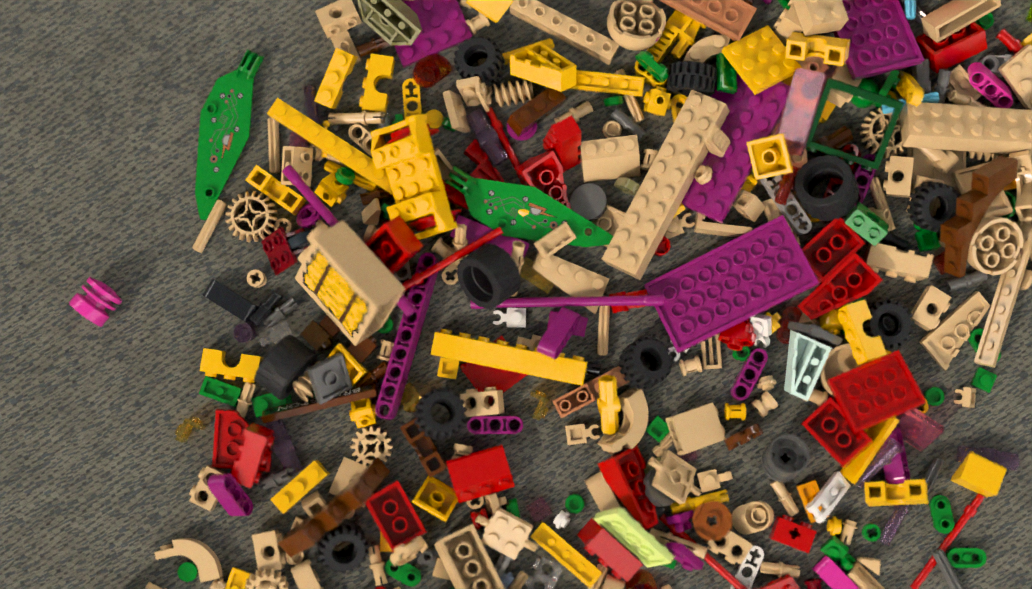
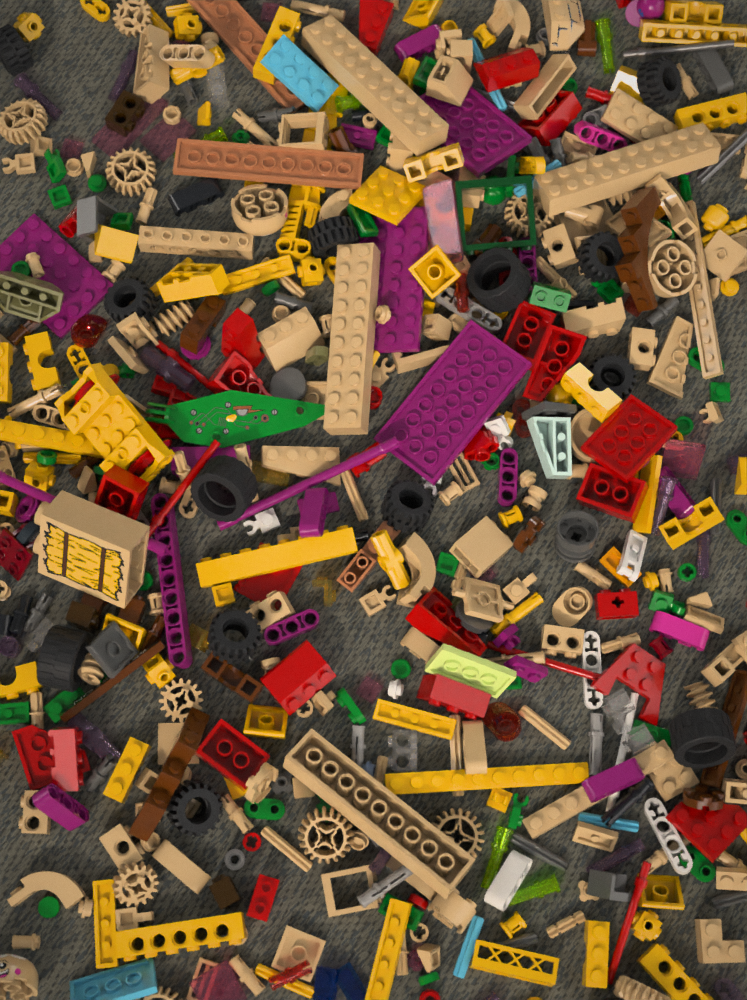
camera: 35 degrees left, 10 degrees down
(474, 515) = (317, 722): red wheel -> none
(506, 533) = (348, 722): tan plate -> none
(555, 240) = (272, 430): tan plate -> none
(657, 70) = (292, 240): green plate -> none
(701, 522) = (528, 615): dark orange plate -> none
(716, 140) = (380, 279): tan slope -> none

